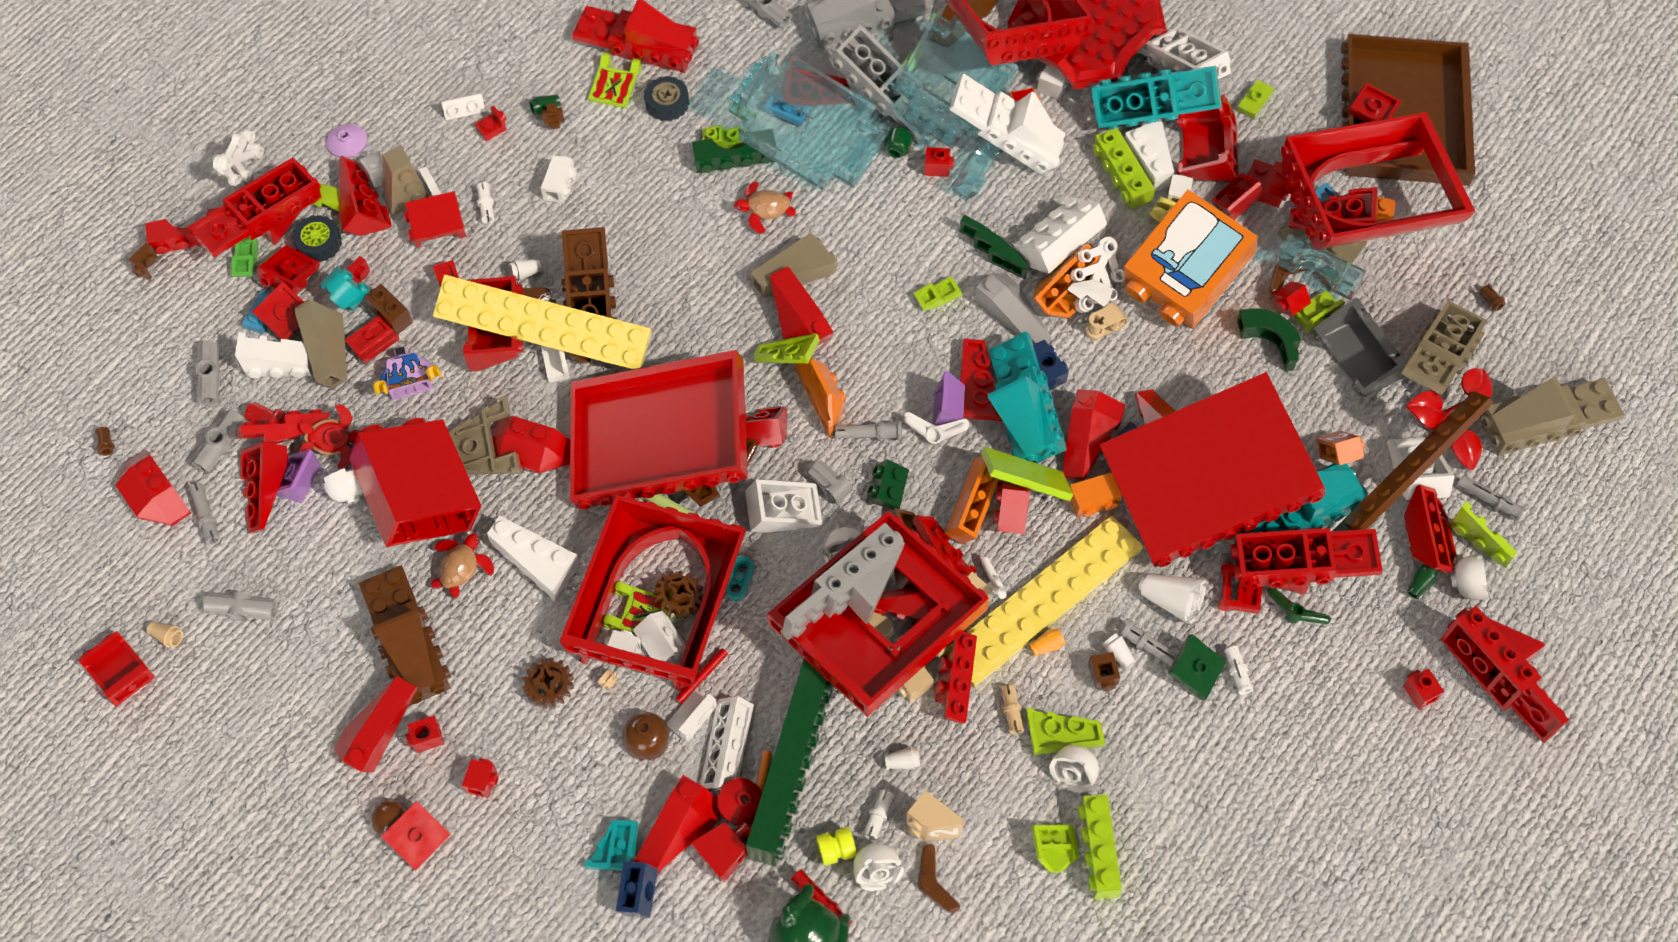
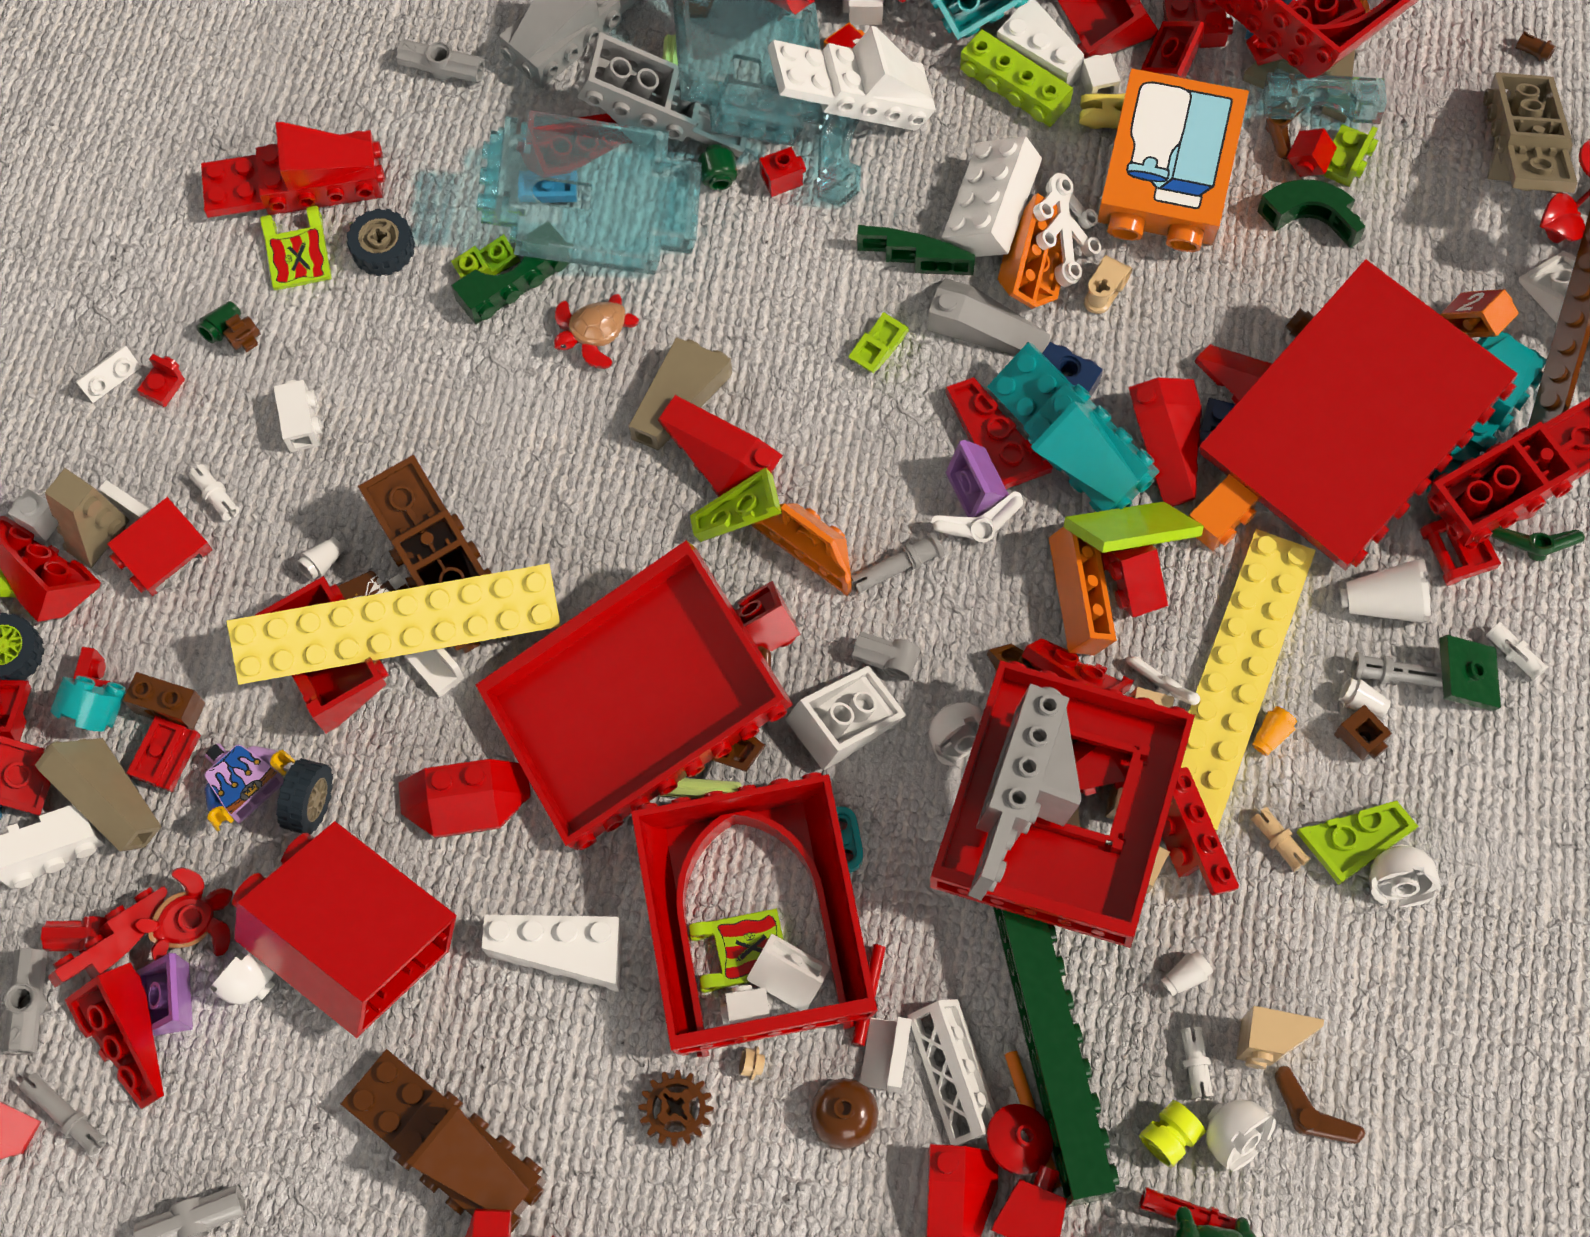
camera: 25 degrees left, 5 degrees up
(436, 398) = (304, 796): none -> black wheel
(446, 268) = (214, 615): red bracket -> none
(460, 564) = (463, 1006): animal -> none
(476, 445) = (394, 832): dark tan wing -> none
(678, 594) = (779, 901): reddish brown gear -> none
(887, 484) = (959, 623): dark green bracket -> none
(1055, 846) = (1435, 989): lime slope -> none
(1096, 290) = (1076, 249): white slope -> none
(1100, 845) = (1490, 962): lime brick -> none
(1361, 348) = (1429, 179): dark grey windscreen -> none

